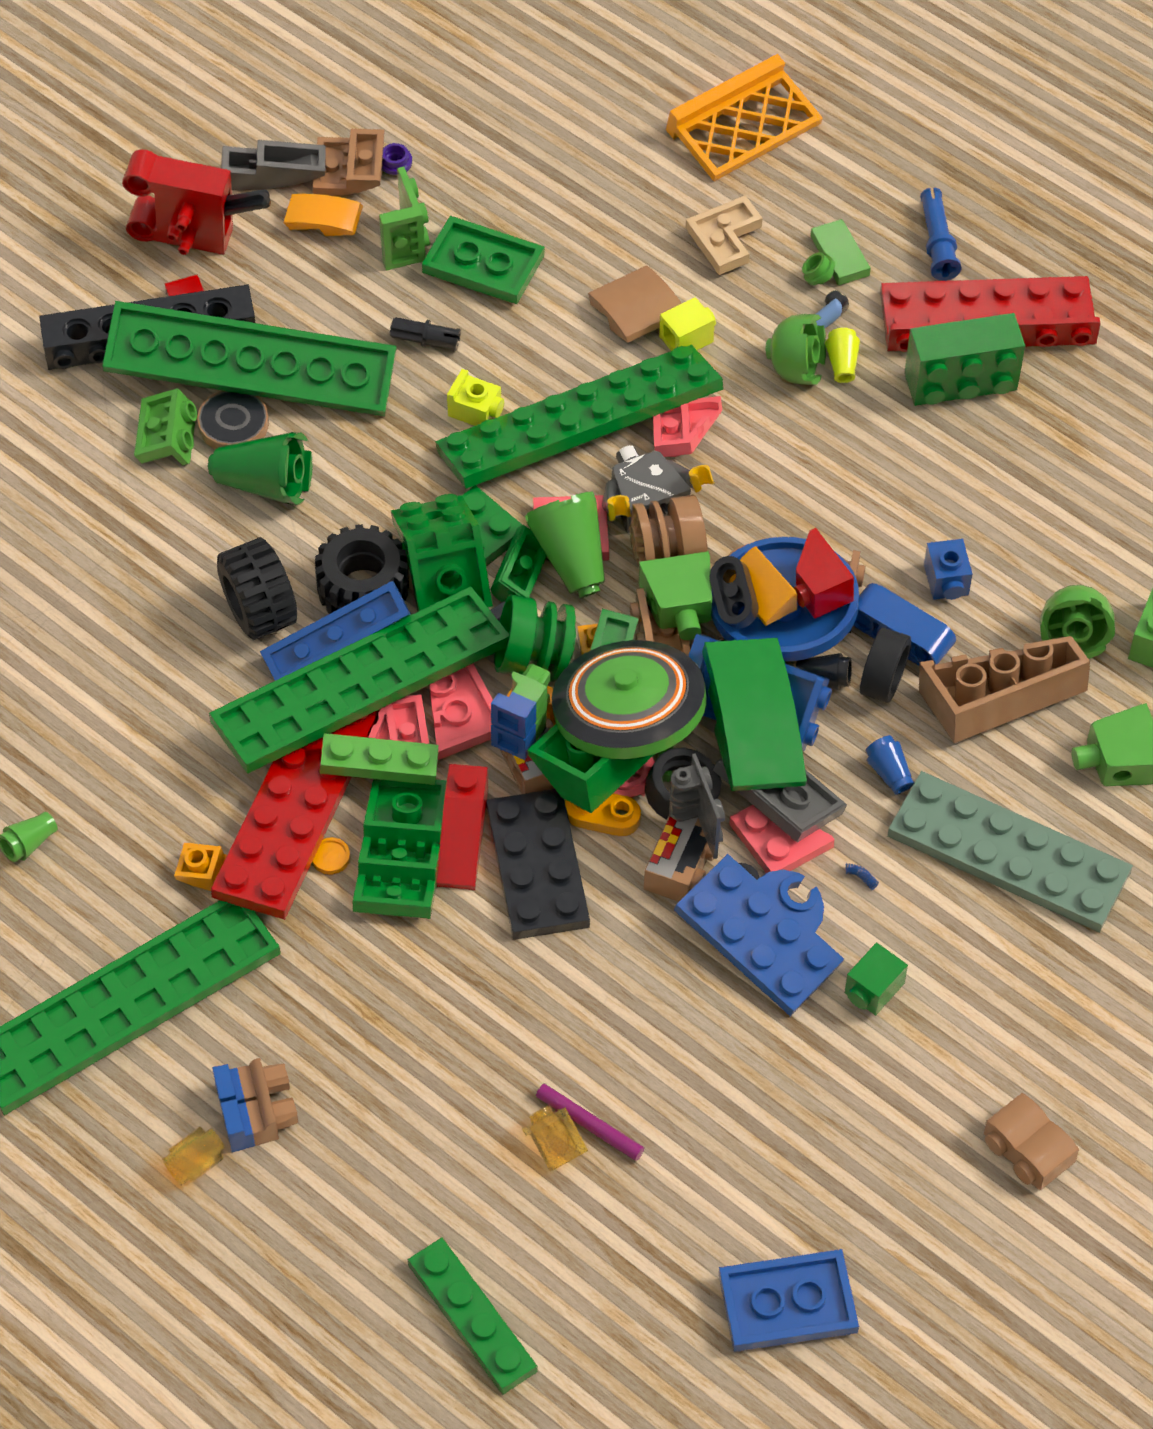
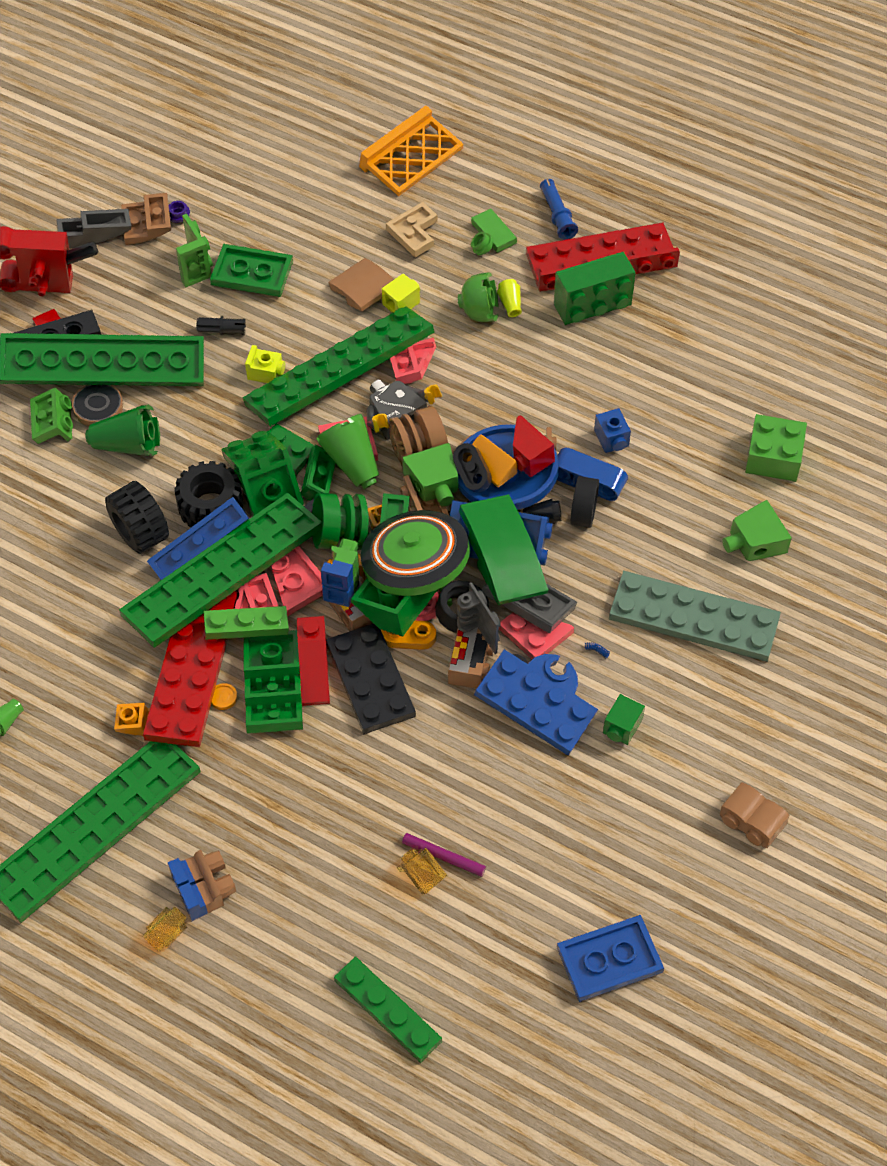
camera: 10 degrees left, 0 degrees up
(328, 213) = (138, 254): light orange slope -> none
(835, 306) = (498, 267): medium blue arm -> none
(890, 763) = (600, 568): blue cone -> none
(1002, 686) = (667, 503): medium nougat wedge -> none
(1079, 613) = (708, 452): bright green cylinder -> none

